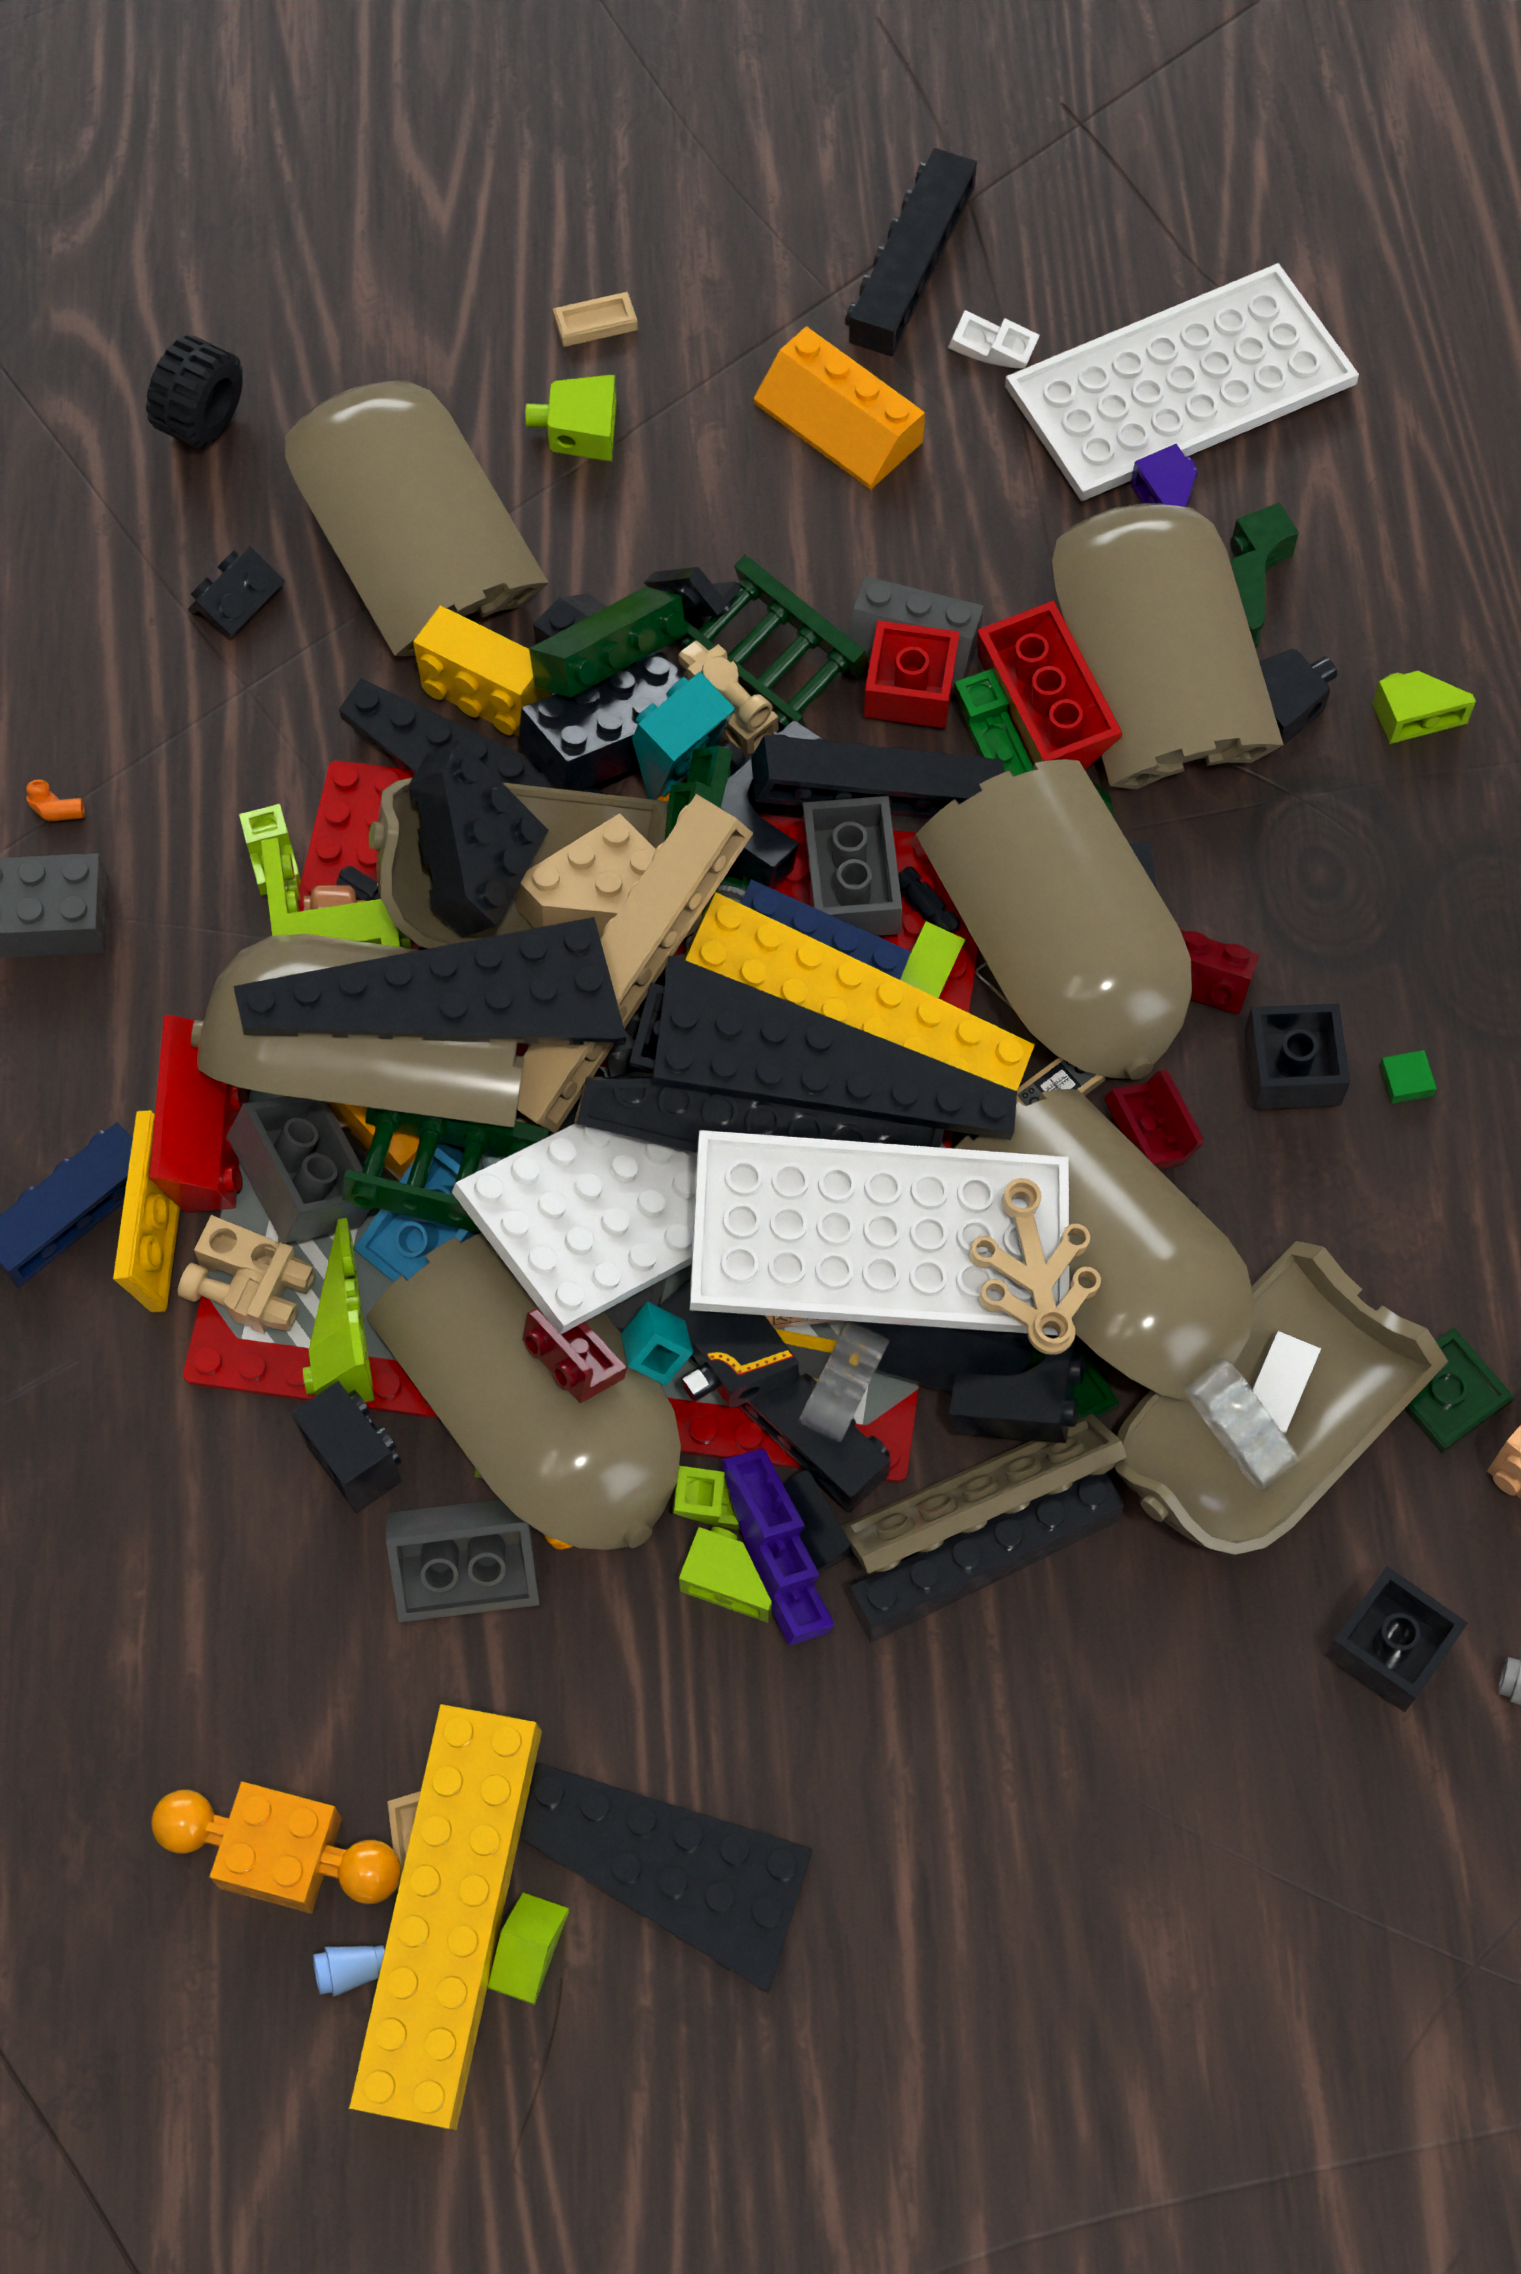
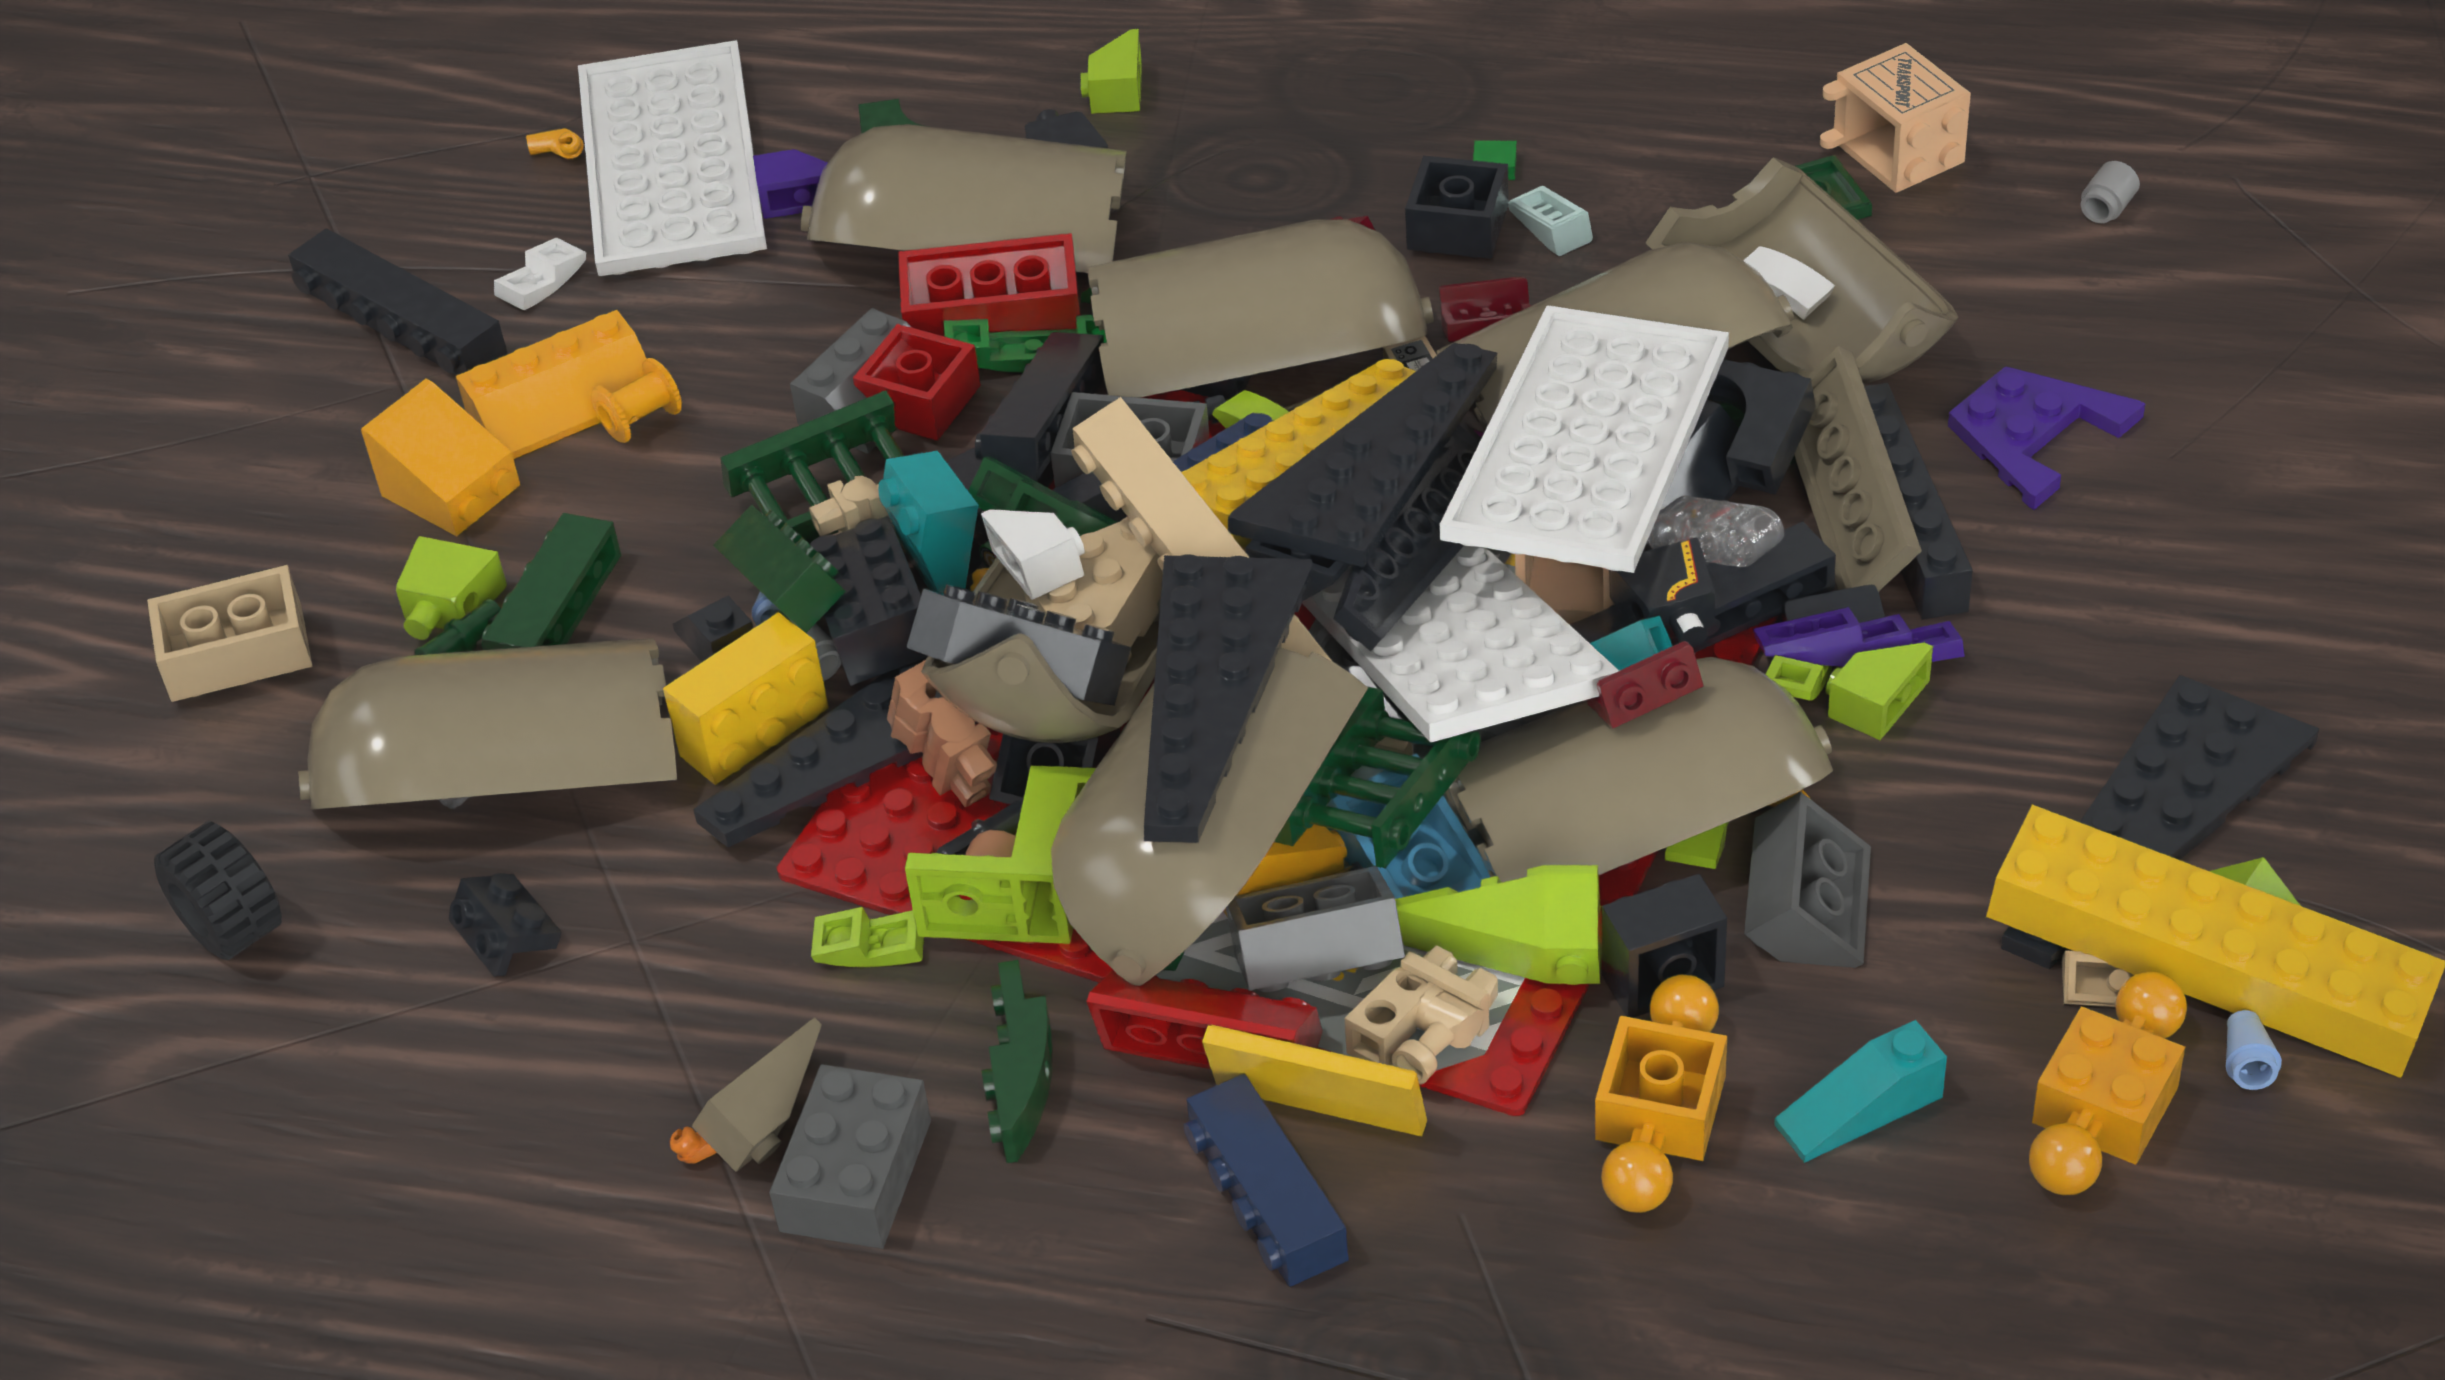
camera: 70 degrees left, 20 degrees down
(67, 826) = (754, 1107): none -> dark tan slope
(138, 1001) = (1019, 1063): none -> dark green slope
(199, 1480) = (1660, 1092): none -> light orange brick
(238, 1647) = (1866, 1092): none -> teal slope
(481, 290) = (229, 633): none -> tan brick
(531, 449) = (463, 633): none -> dark green pin
(587, 495) = (556, 585): none -> dark green brick
(595, 319) = (317, 562): tan tile -> none
(600, 817) = (1035, 549): none -> white slope
(698, 594) = (733, 501): black bracket -> none
(713, 354) = (438, 459): none -> light orange slope
(832, 470) = (636, 400): none -> light orange hose
(1036, 1274) = (1716, 333): tan plant -> none
(1155, 1645) = (2023, 412): none -> dark purple wing
(1177, 285) = (559, 141): none -> light orange arm
(1242, 1424) = (1830, 291): clear beam -> none
(1313, 1169) = (1557, 224): none -> light aqua slope
(1396, 1639) = (2054, 253): black brick -> none

